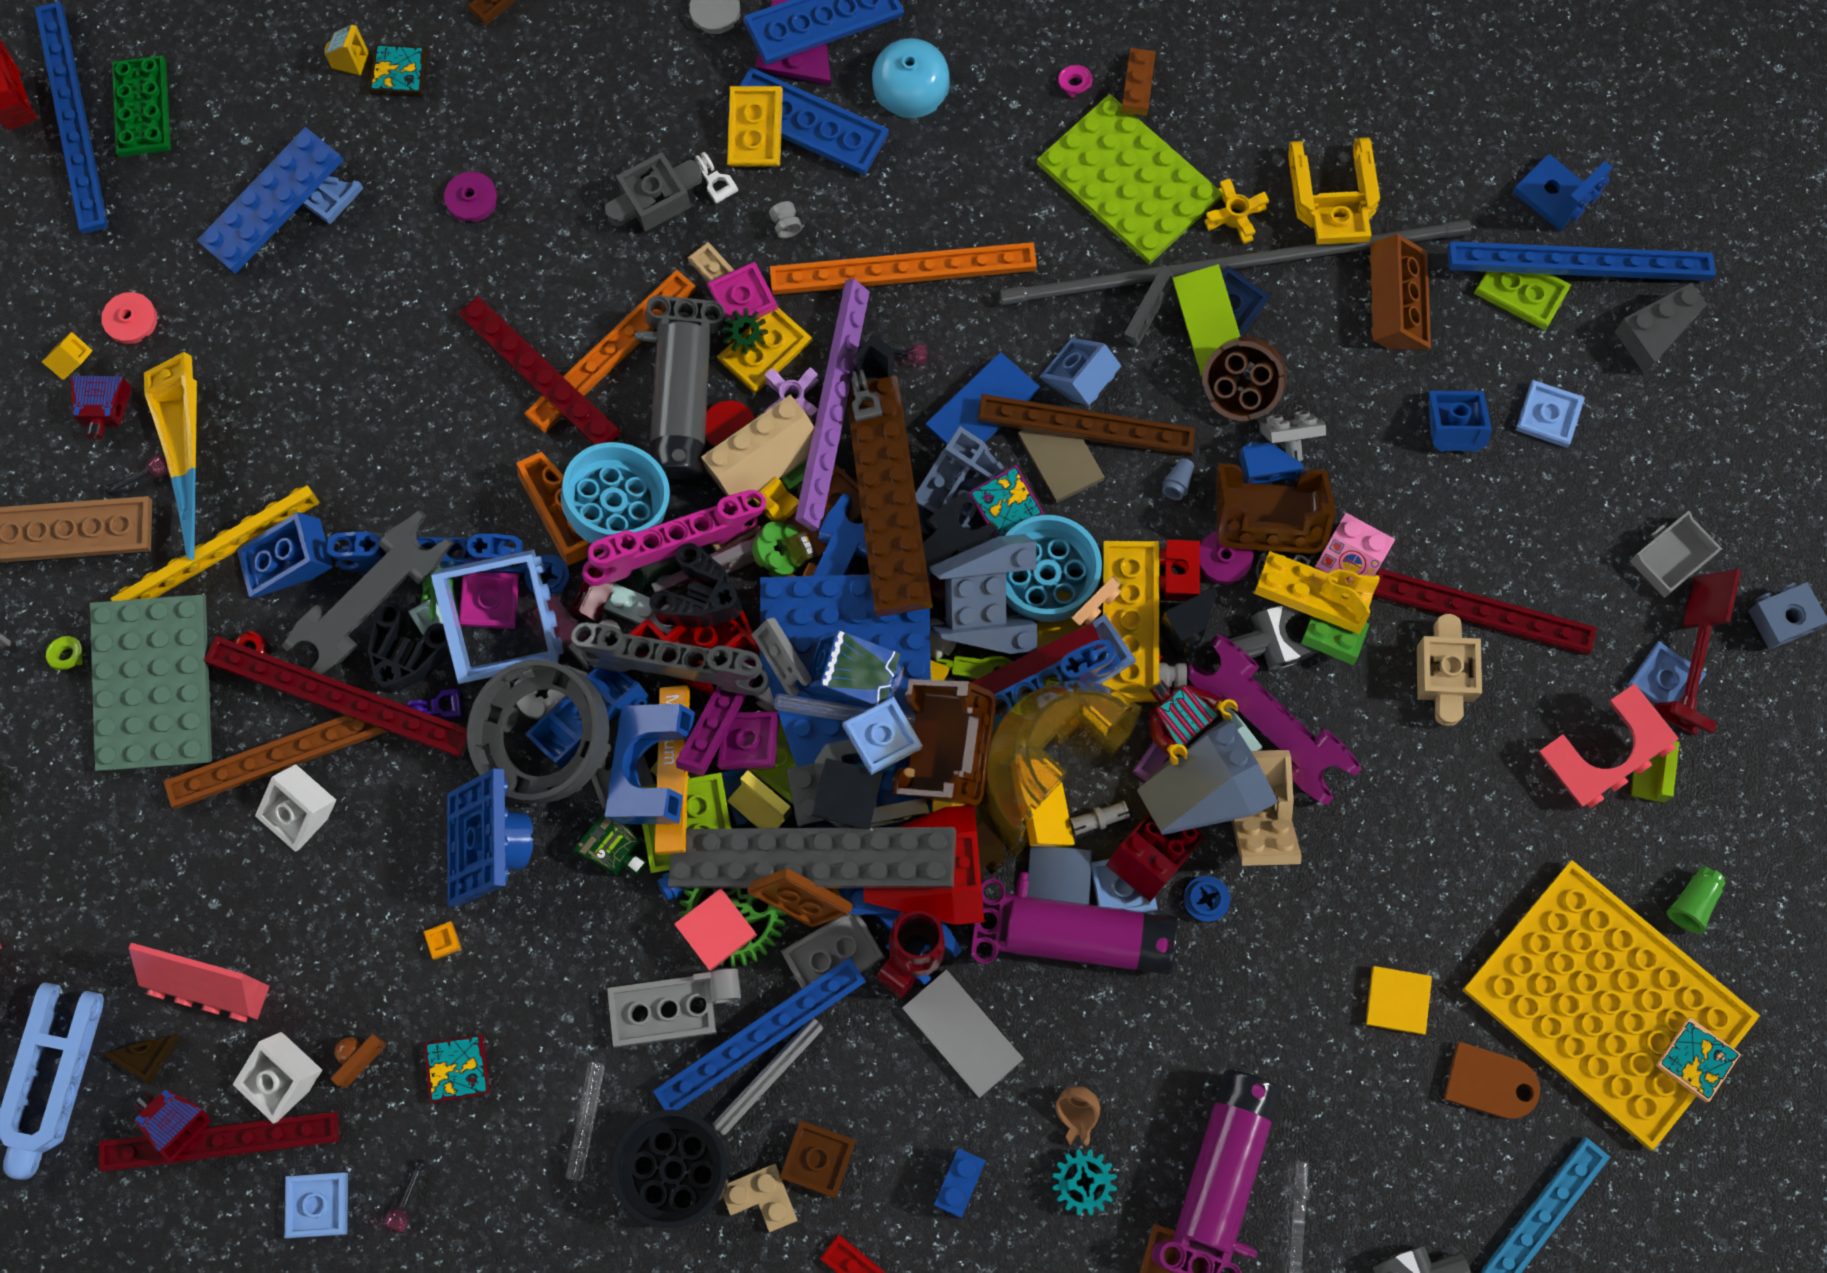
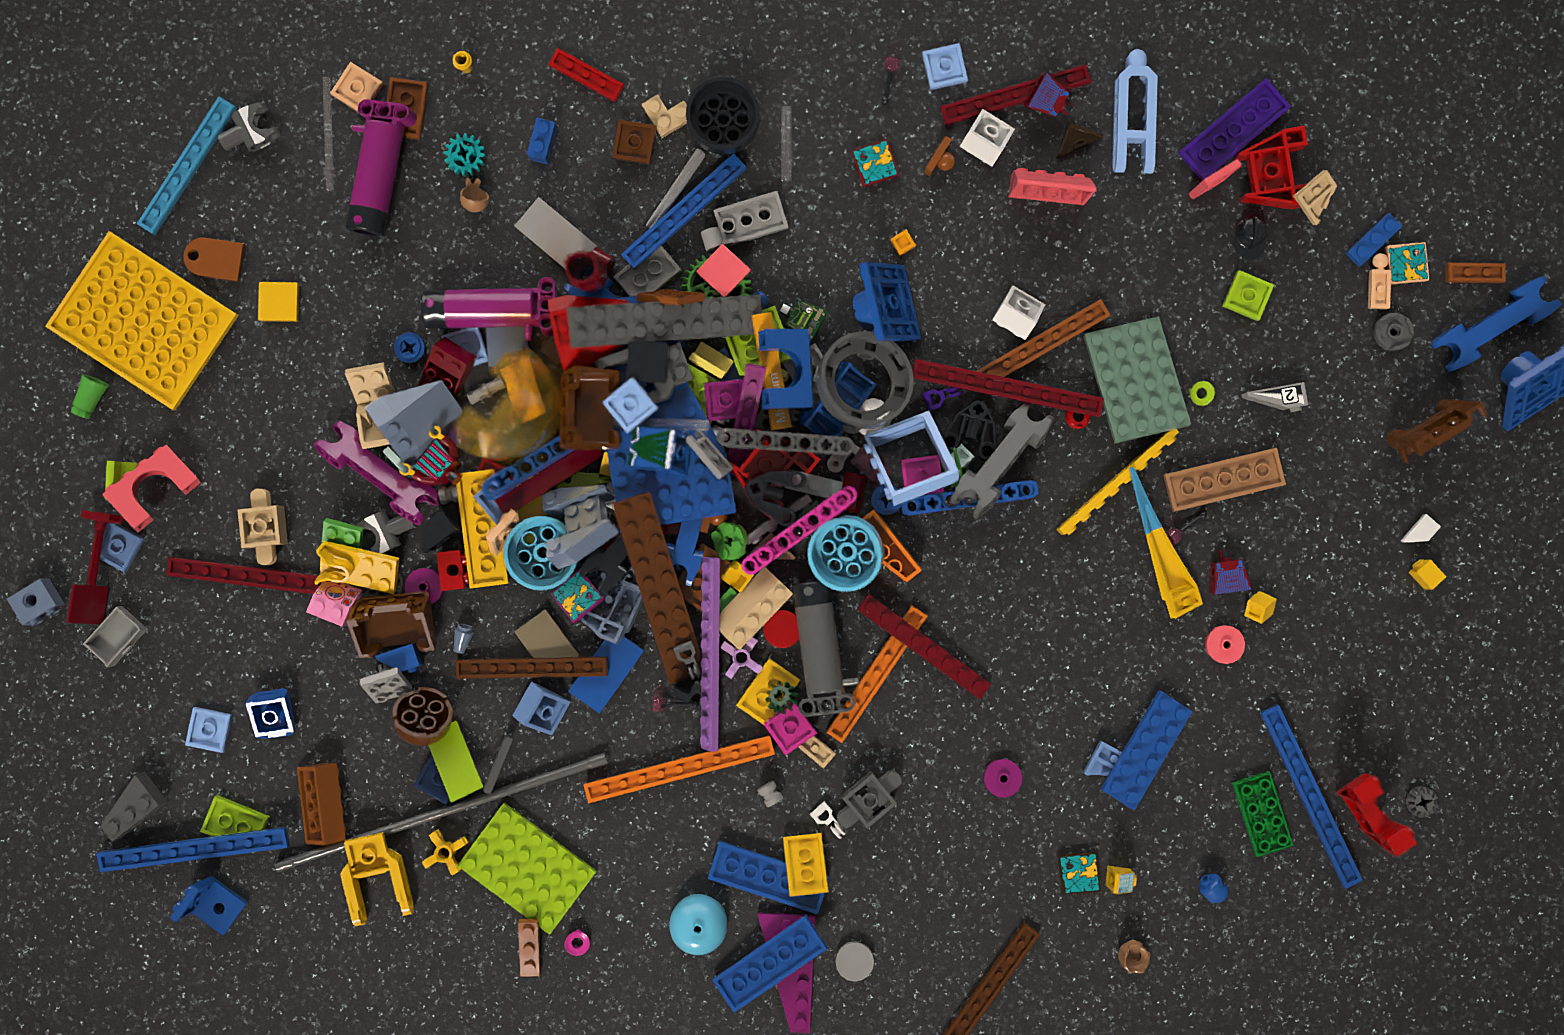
camera: 170 degrees right, 15 degrees up
(229, 25) = (1213, 888): none -> blue head
(284, 555) = (1069, 483): blue slope -> none
(801, 547) = (714, 543): clear yellow slope -> none
(1698, 1060) = (83, 290): tile -> none

